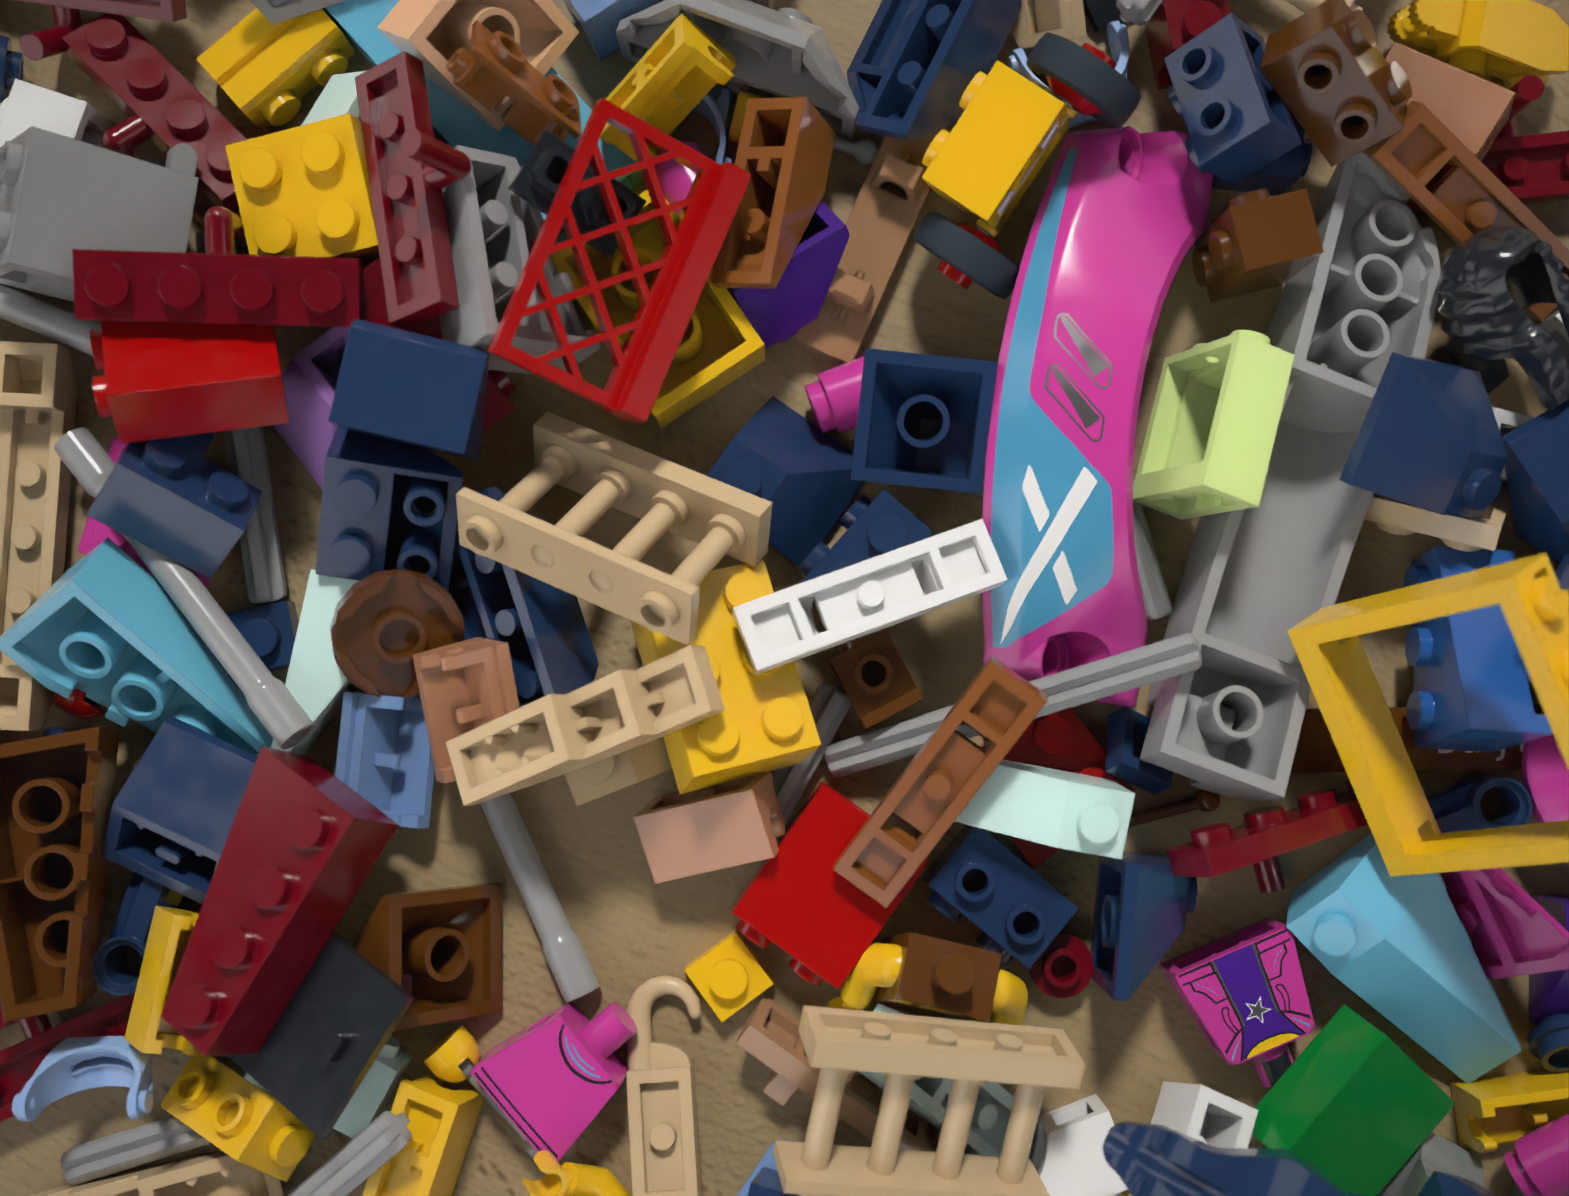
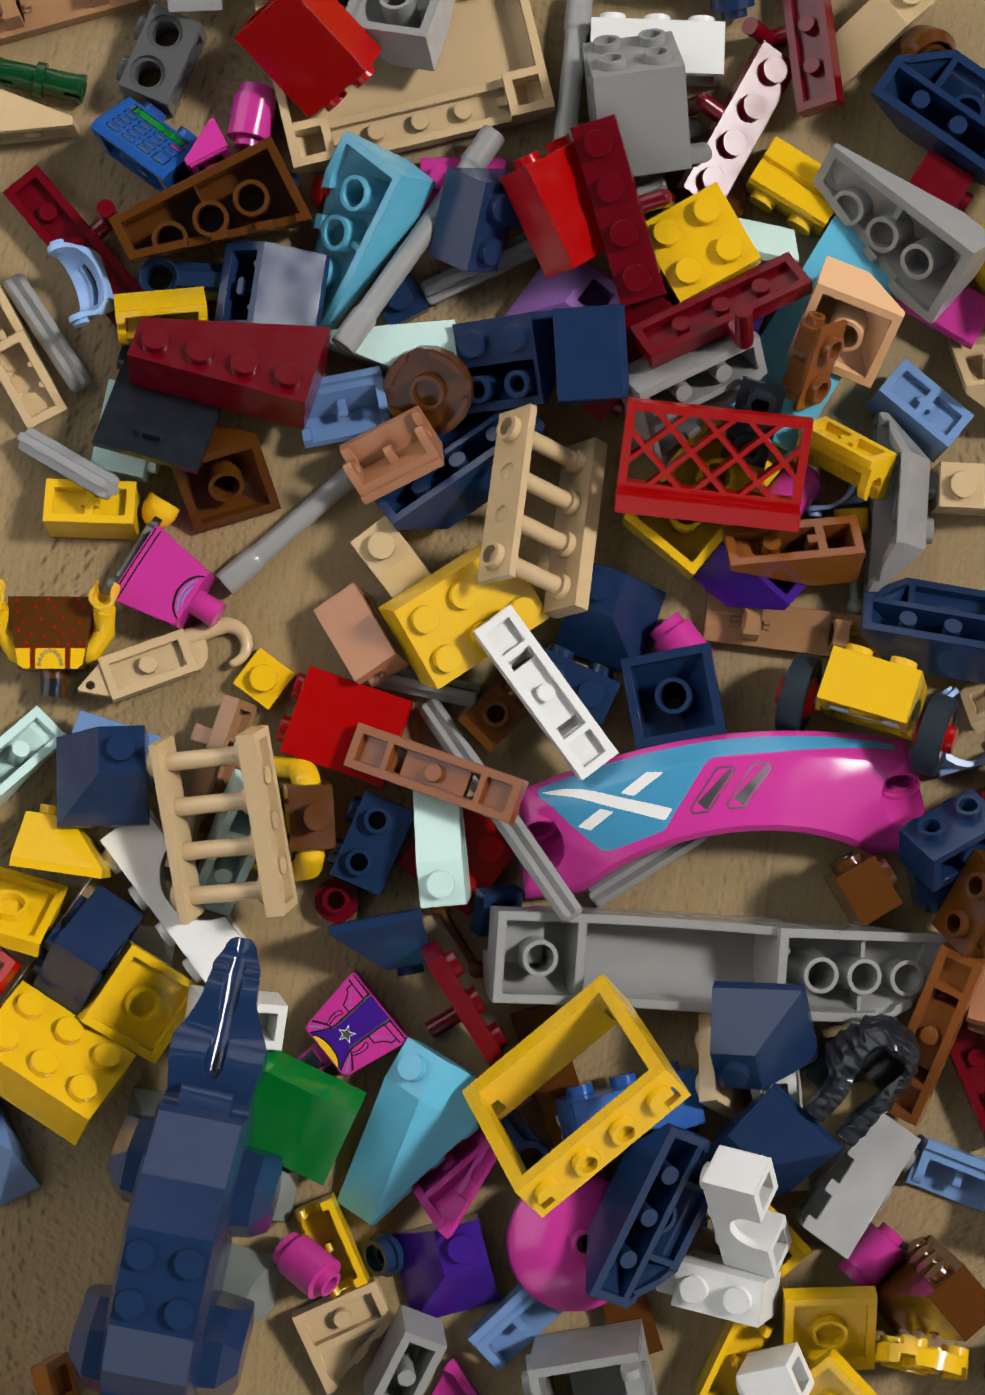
camera: 75 degrees right, 0 degrees up
(238, 1117) = (82, 383): yellow bracket -> none
(584, 725) = (405, 531): tan slope -> none
(1213, 427) = (728, 891): yellowish green window -> none

